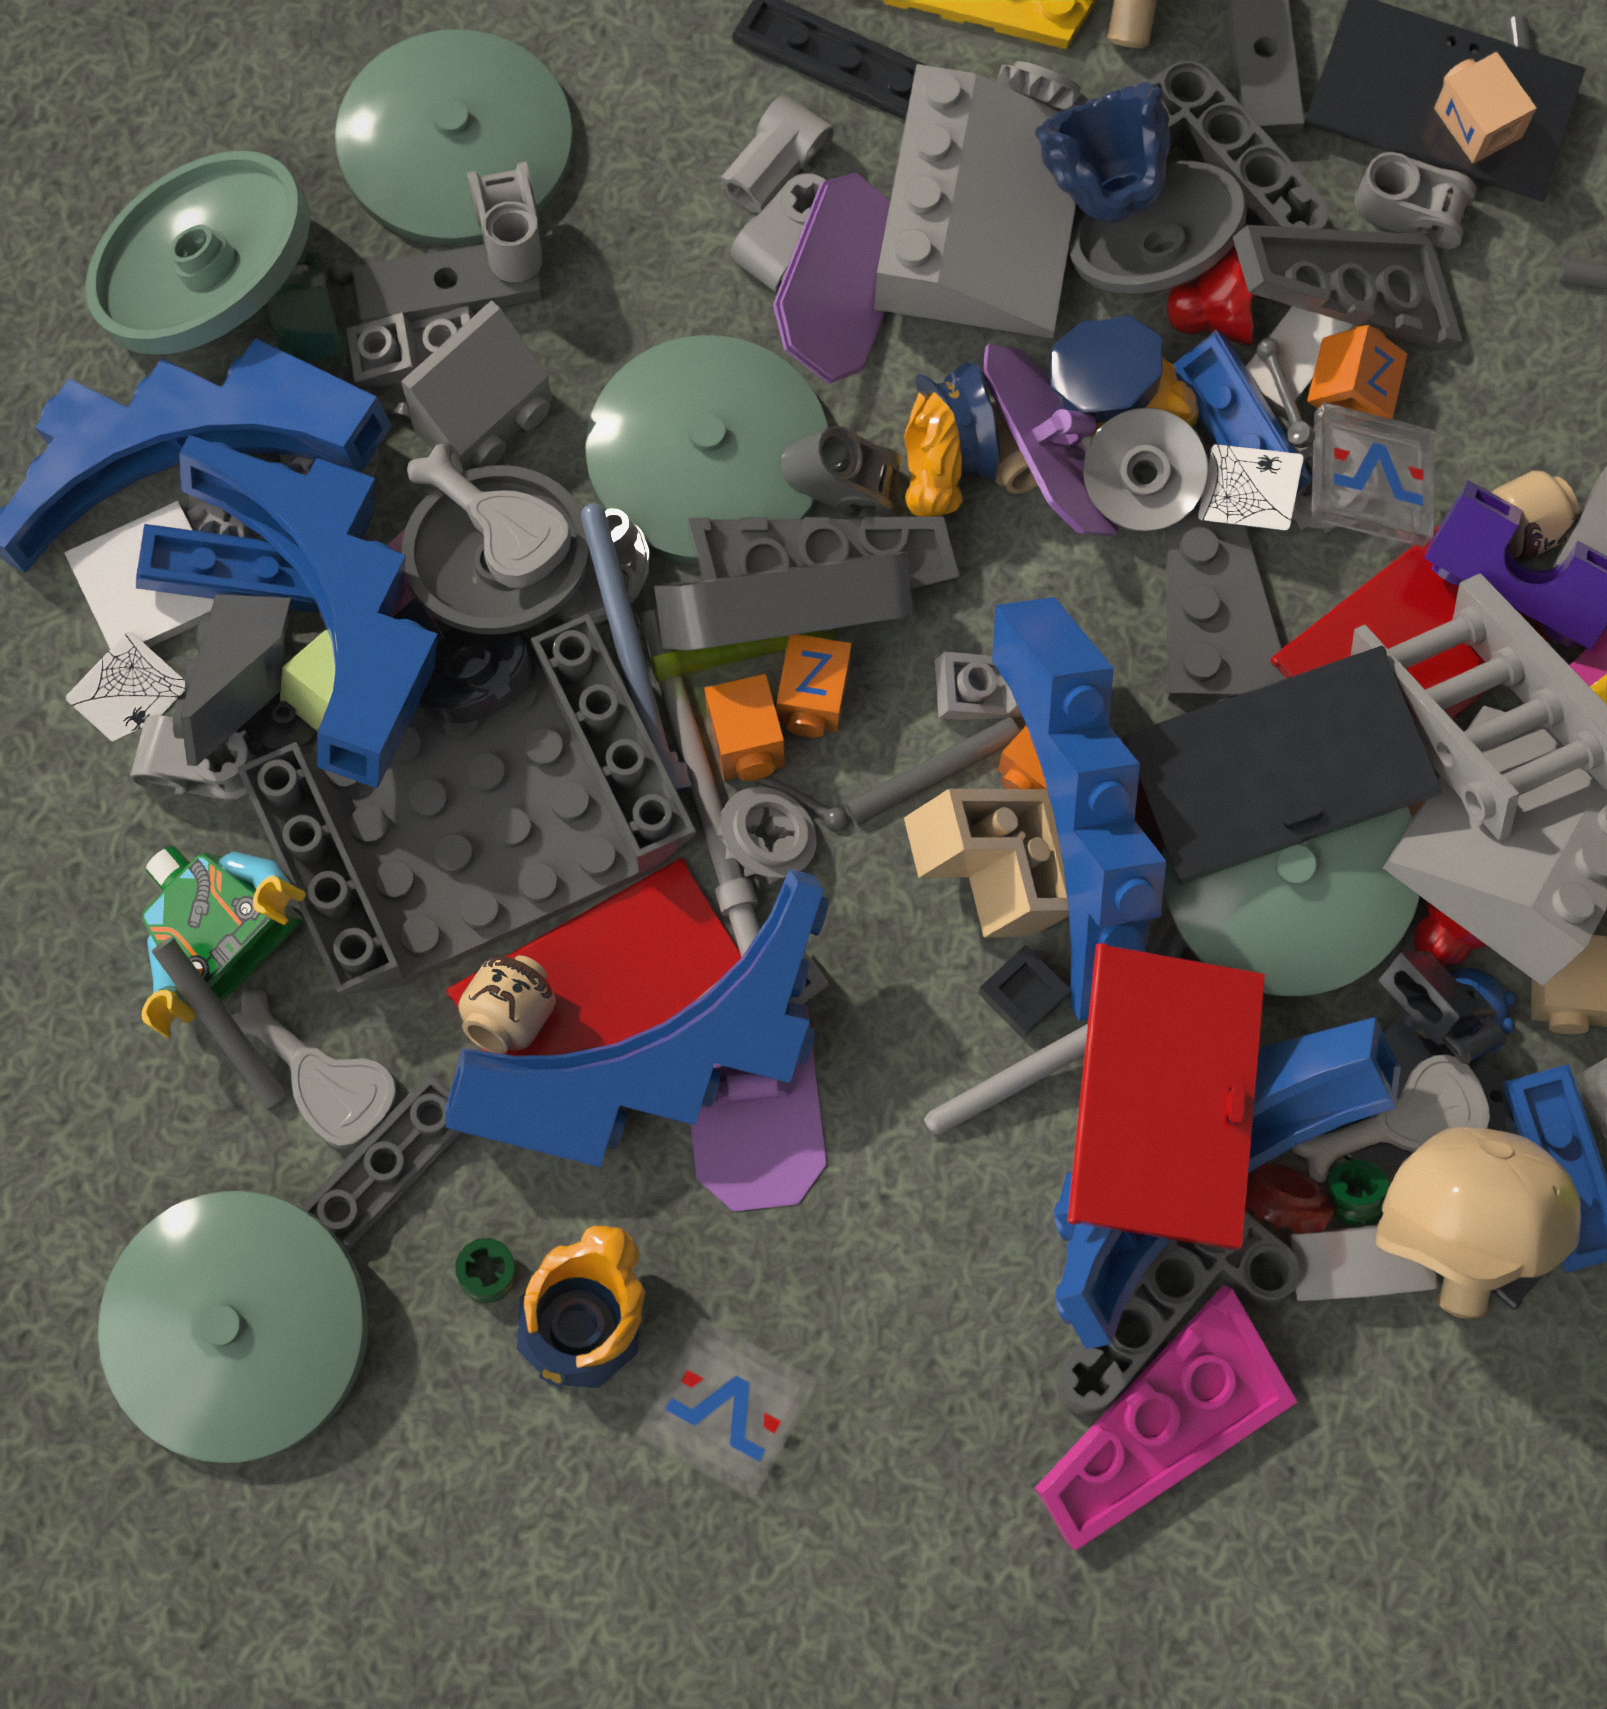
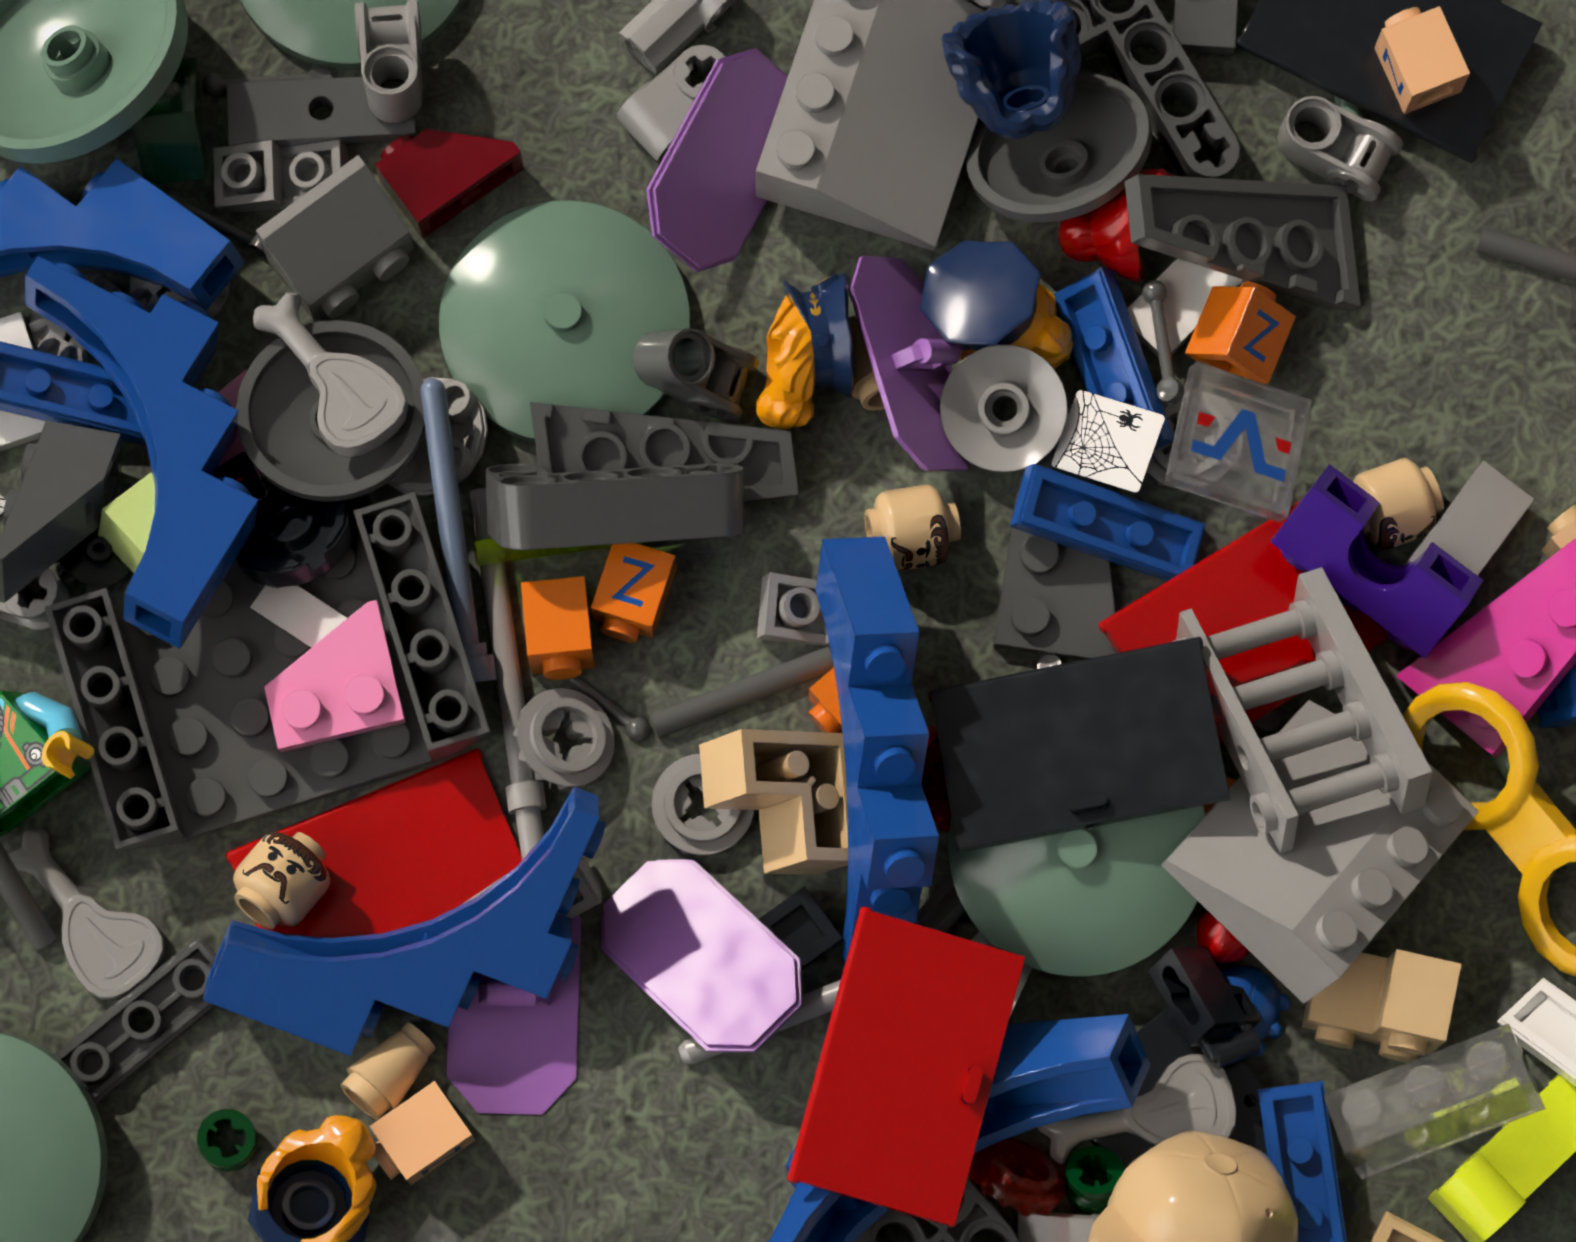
camera: 10 degrees right, 5 degrees up
(504, 754) = (297, 613): none -> white sticker
(537, 809) = (337, 685): none -> bright pink wing
(576, 322) = (444, 174): none -> dark red slope
(637, 1181) = (387, 1072): none -> tan cone
(681, 1237) = (419, 1135): none -> light nougat brick
(881, 885) = (698, 835): none -> light grey gear
(936, 1025) = (701, 956): none -> shield
(1080, 585) = (914, 525): none -> tan head
(1259, 566) = (1106, 524): none -> blue tile

